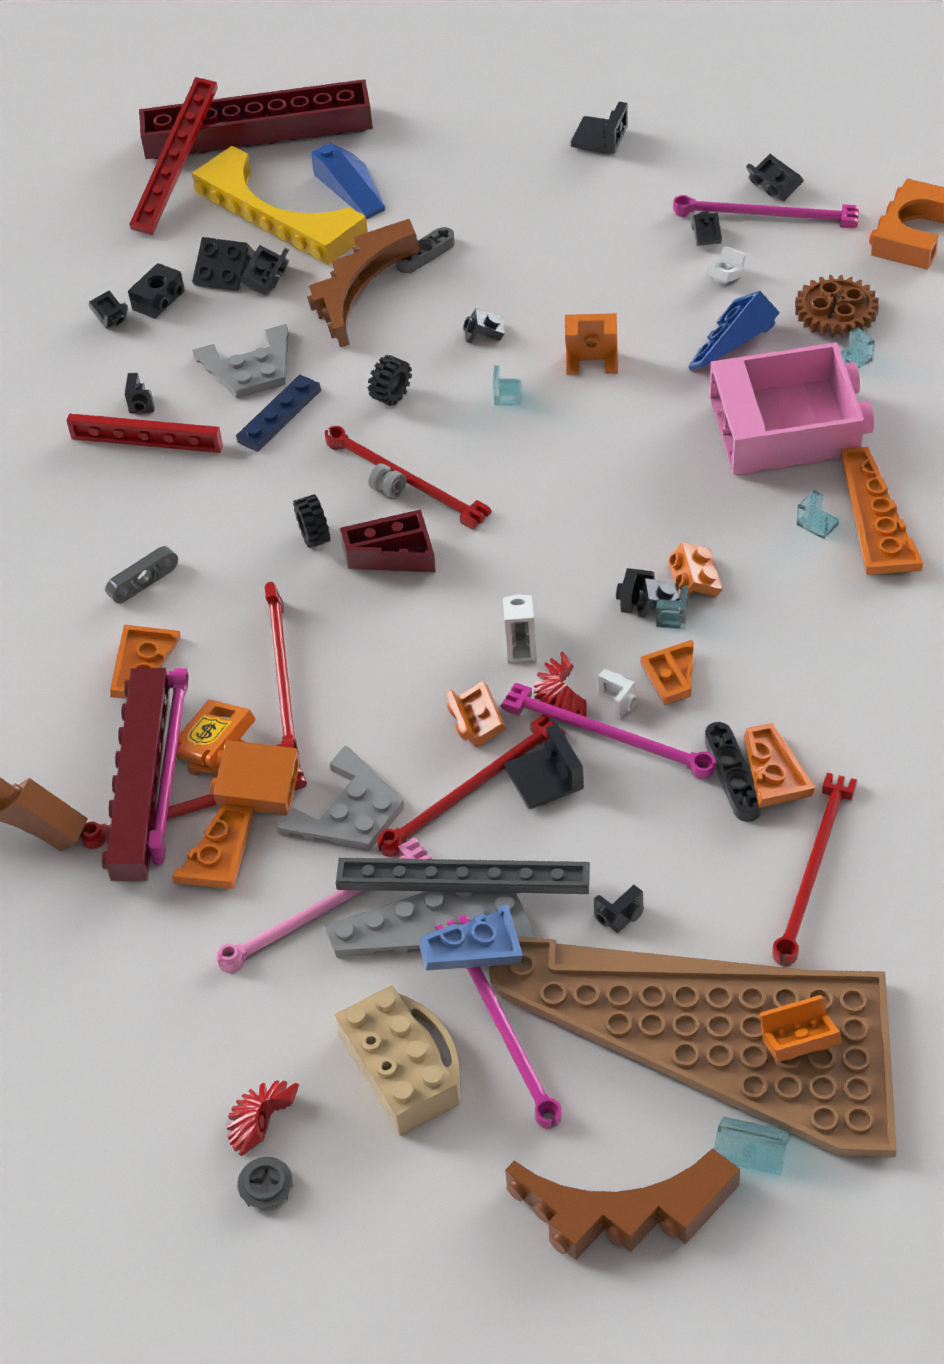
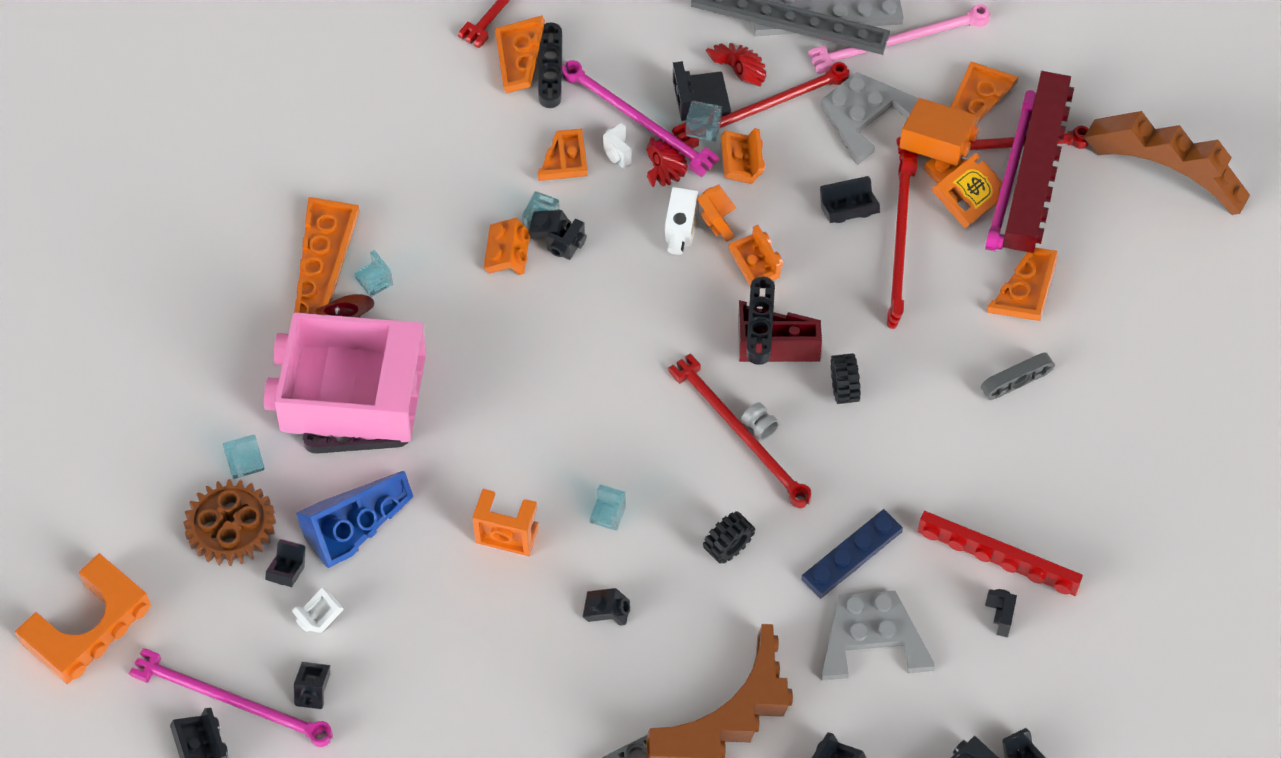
camera: 170 degrees left, 10 degrees up
(343, 693) = (848, 200): none -> black bracket
(406, 526) = (760, 320): none -> black beam
(431, 617) = (756, 256): none -> orange bracket
(482, 630) = (716, 206): none -> orange bracket
(506, 827) = (743, 61): none -> red hair
(526, 720) = (703, 121): none -> clear light blue panel
(771, 286) = (287, 563): none -> black bracket
(825, 466) = (348, 306): none -> dark red piece

